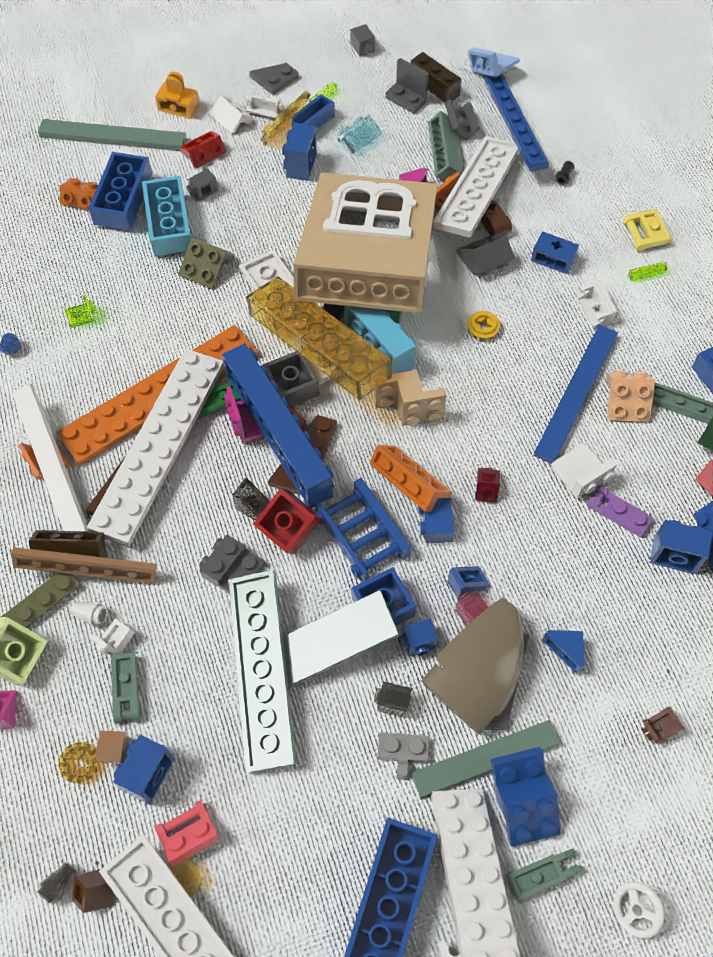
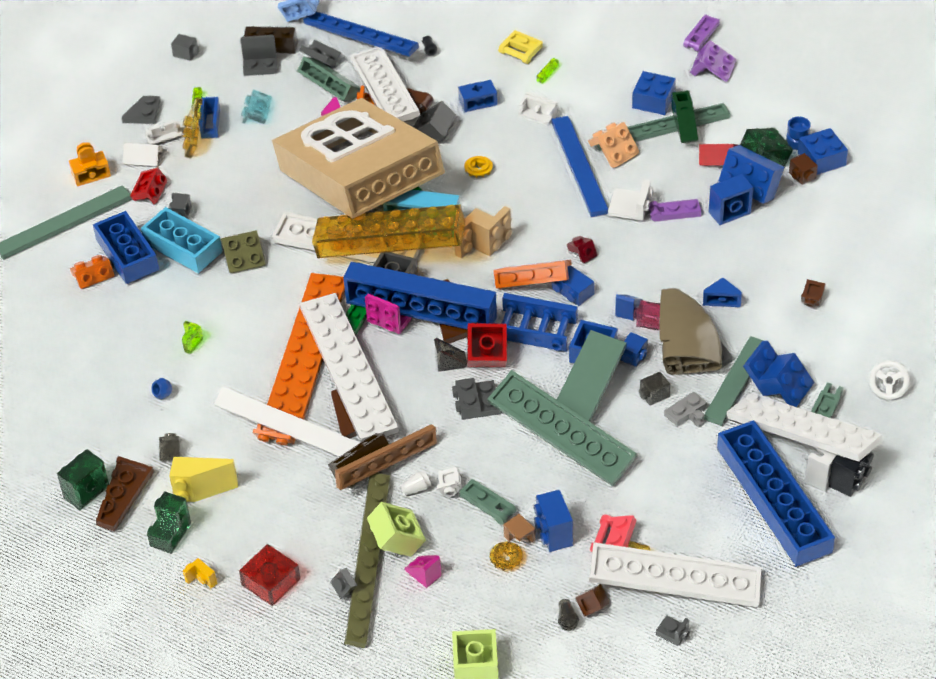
camera: 40 degrees left, 15 degrees down
(300, 151) = (232, 141): blue brick -> none

